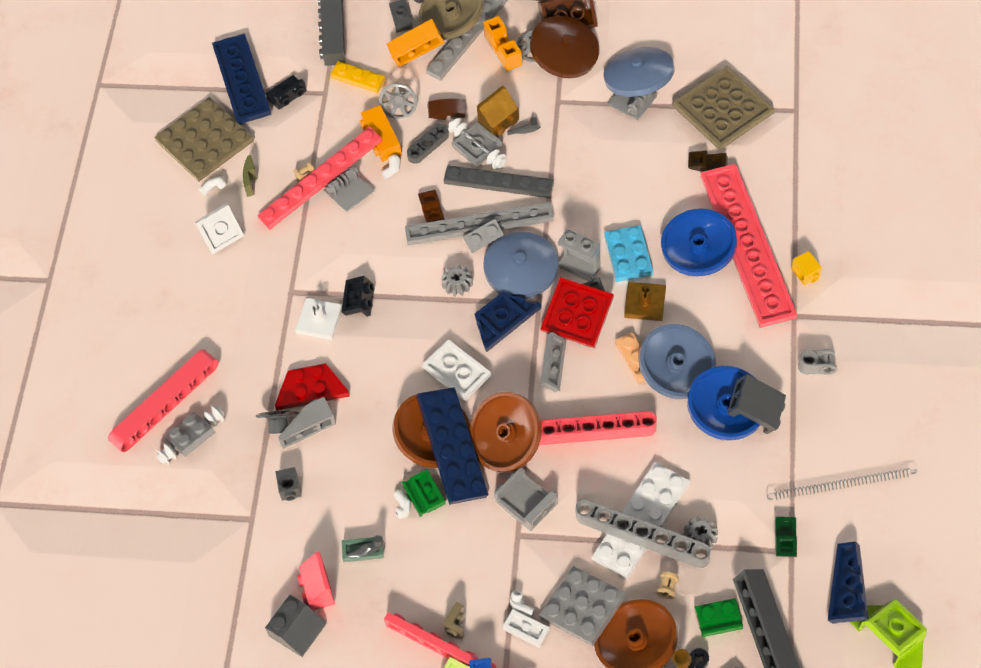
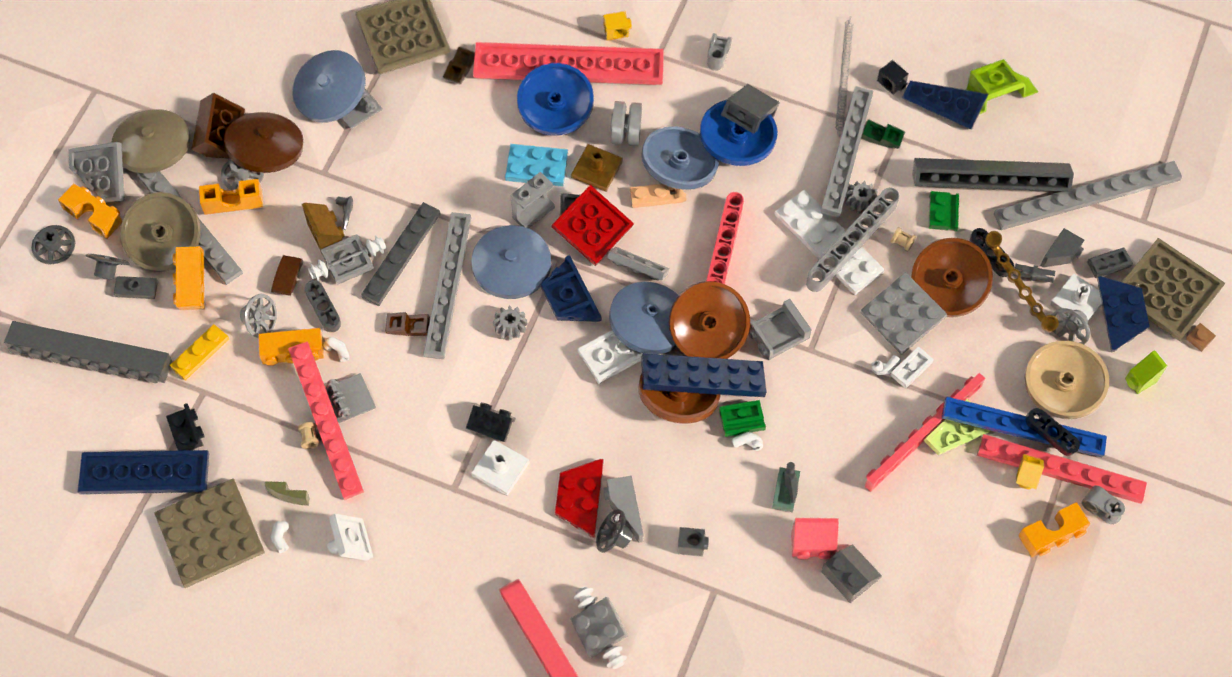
camera: 80 degrees left, 5 degrees up
(455, 617) = (885, 425): dark tan bracket -> none
(483, 236) = (466, 283): light grey plate -> none
(497, 366) = (642, 317): none -> sand blue dish
(694, 304) = (626, 123): none -> light grey wheel
(748, 506) = (847, 152): none -> light grey plate
(857, 527) = (893, 77): none -> black brick

